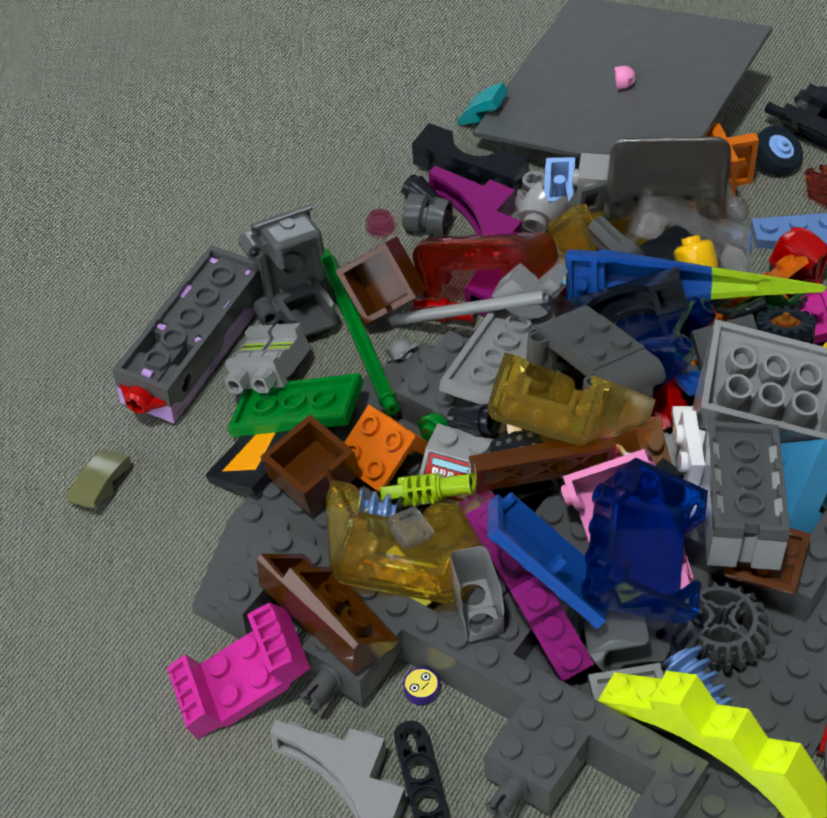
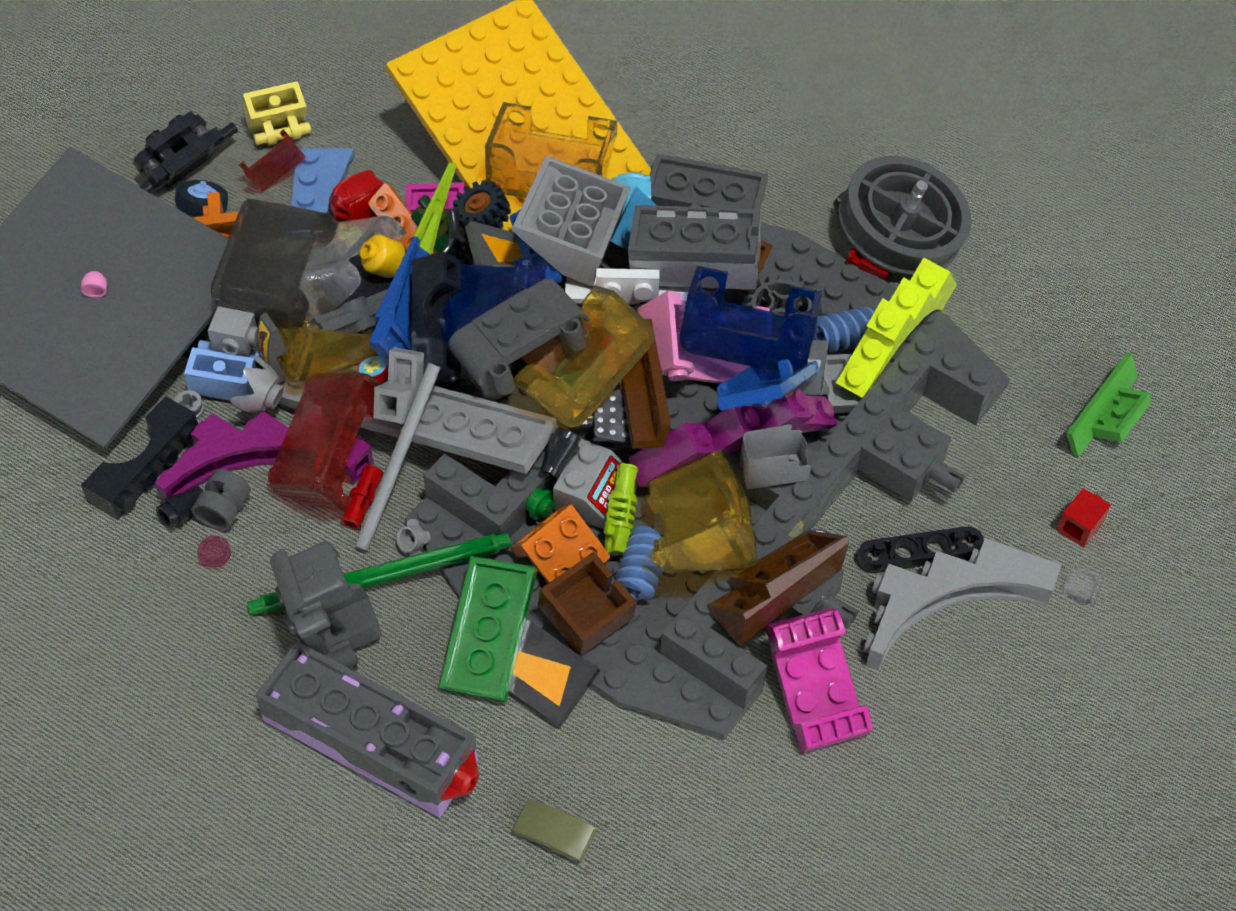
camera: 90 degrees left, 5 degrees up
(266, 357) = (431, 657): light grey hips -> none
(380, 279) = (330, 521): reddish brown piece -> none
(409, 527) = (676, 519): clear tile -> none
(484, 101) = (60, 433): teal slope -> none

